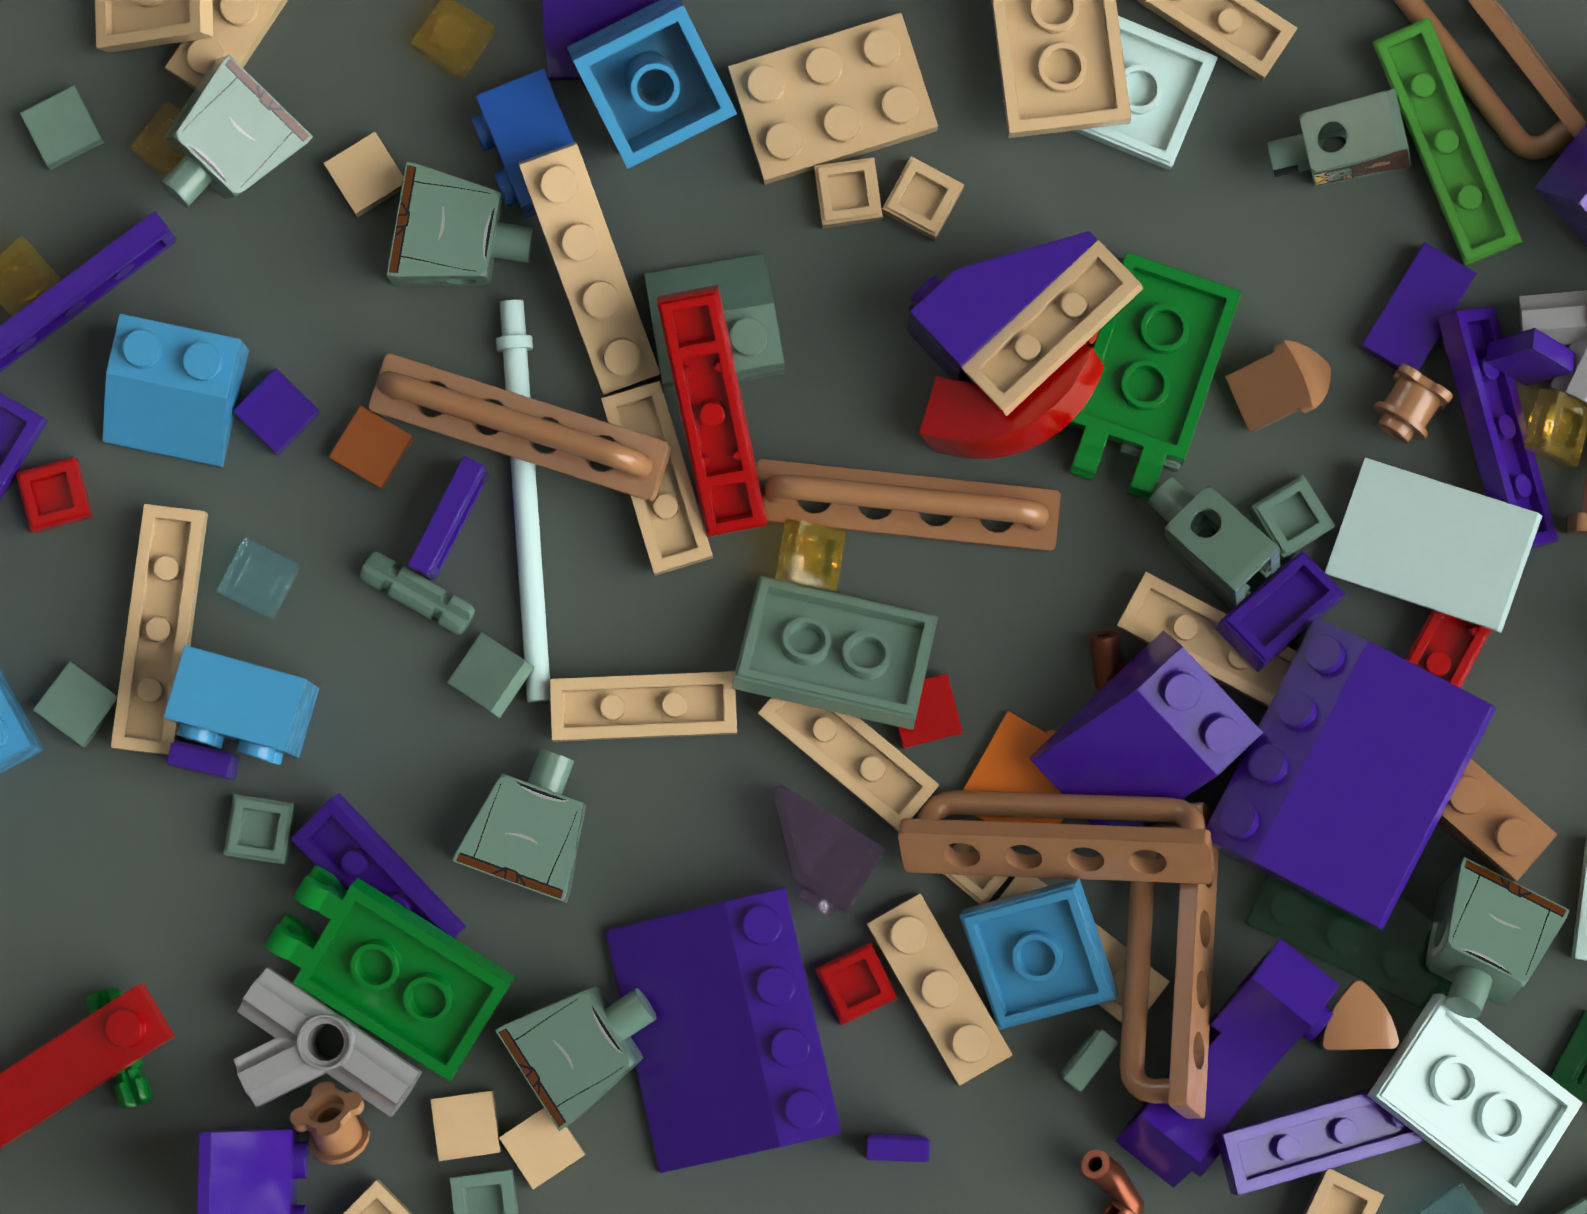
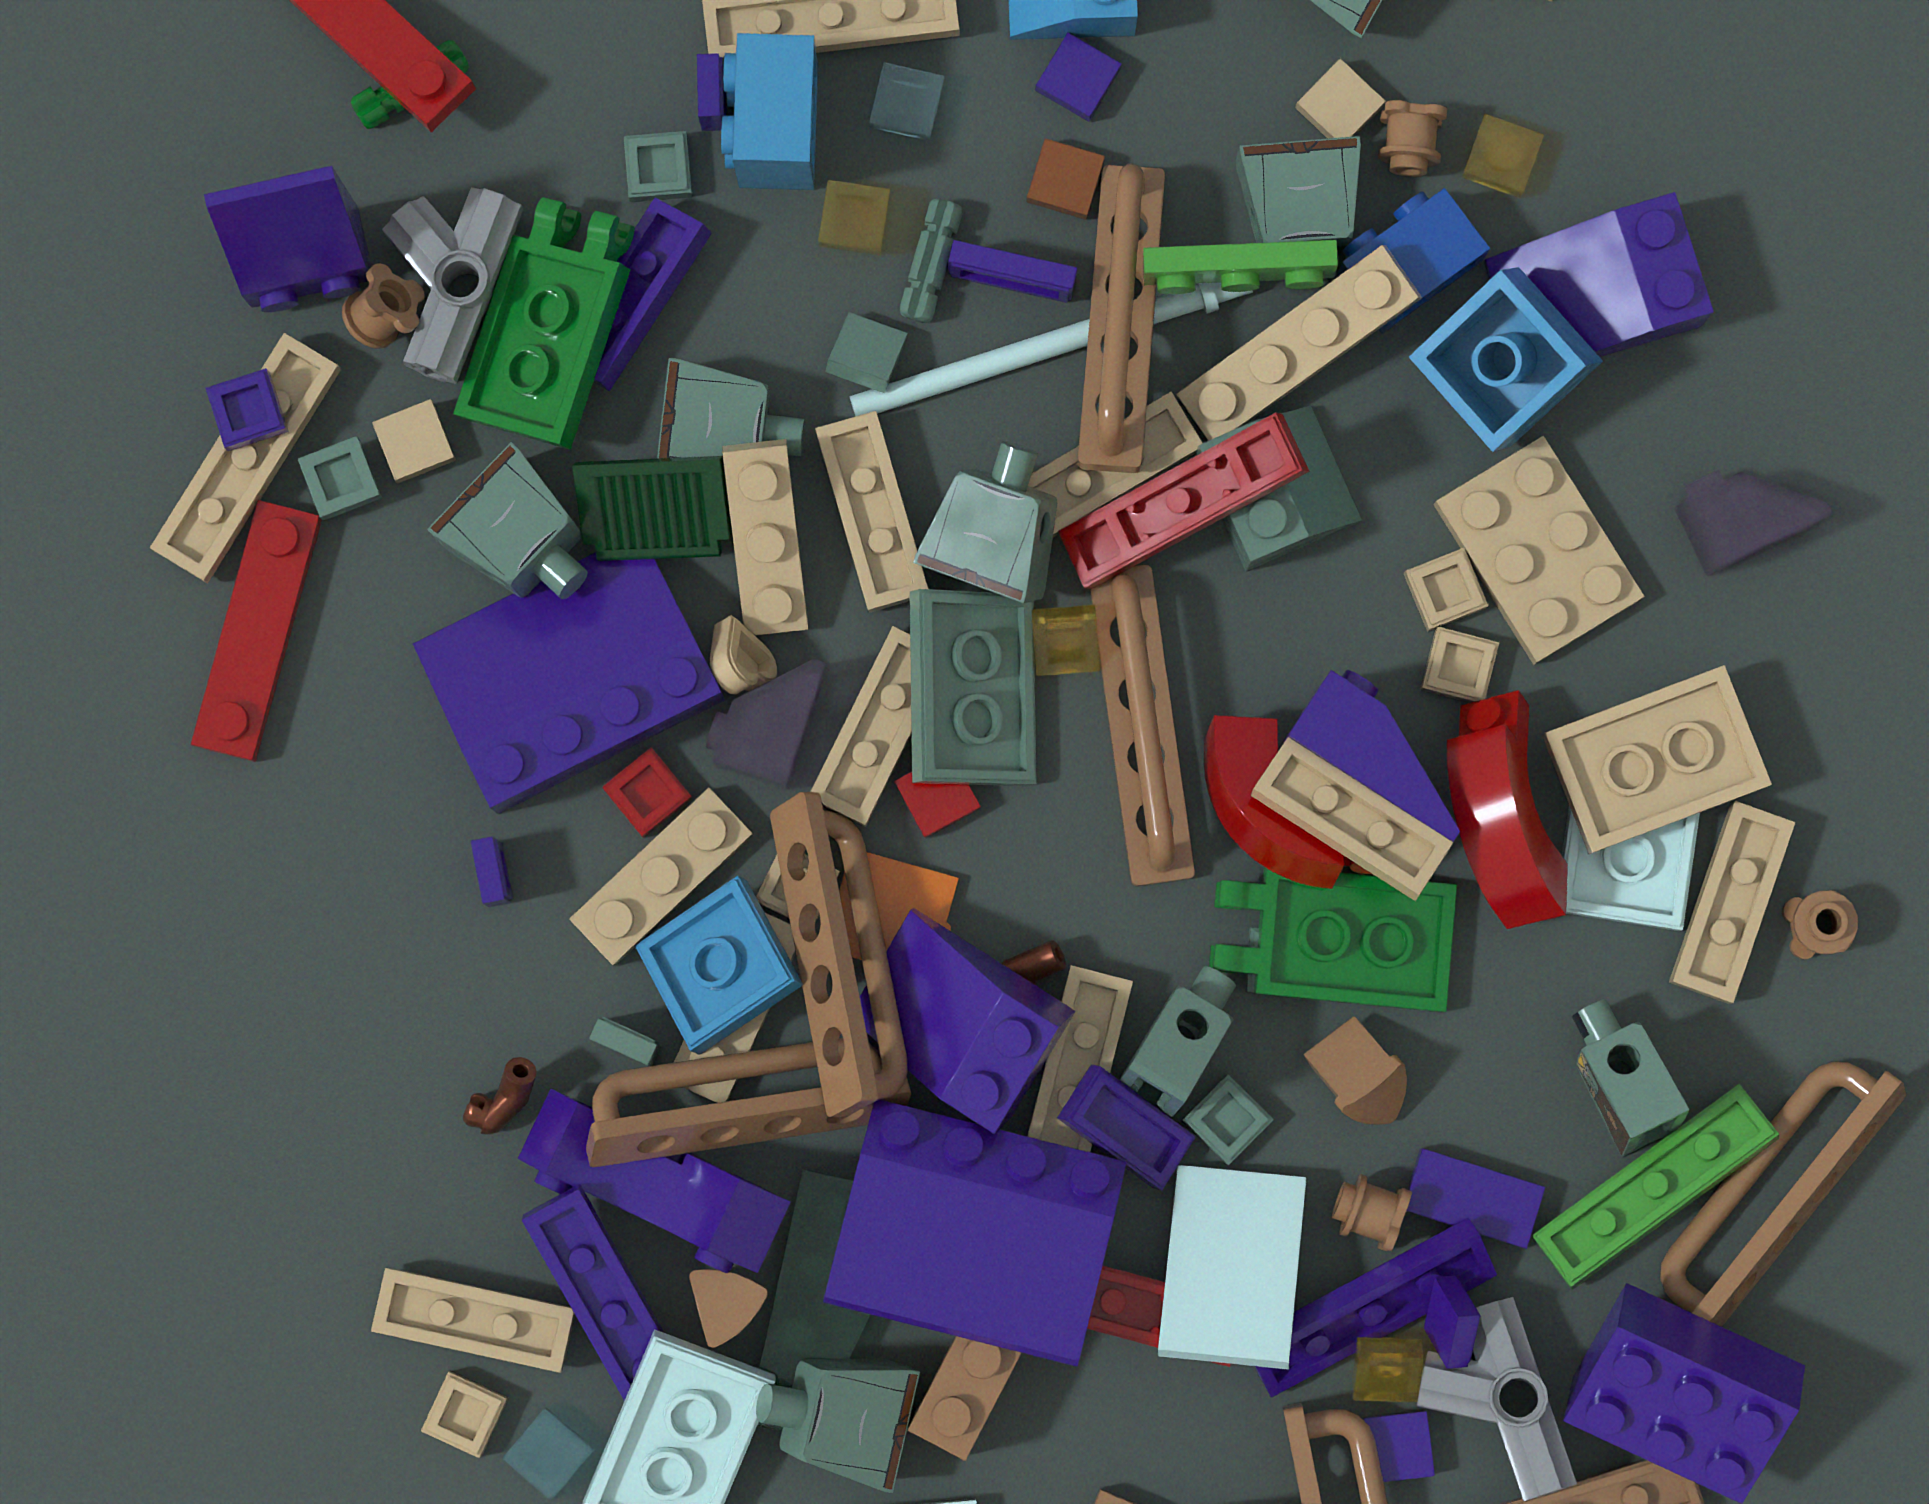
camera: 75 degrees right, 0 degrees up
(358, 654) = (854, 217): none -> clear yellow plate
(416, 115) = (1411, 137): none -> medium nougat brick
(503, 302) = (1240, 265): none -> bright green plate
(541, 1148) = (405, 520): tan tile -> none
(591, 910) = (653, 507): none -> dark green window
(645, 811) = (765, 537): none -> tan plate
(692, 594) = (994, 528): none -> sand green torso
(753, 864) = (739, 657): none -> tan tile
(1072, 195) = (1497, 814): none -> red arch

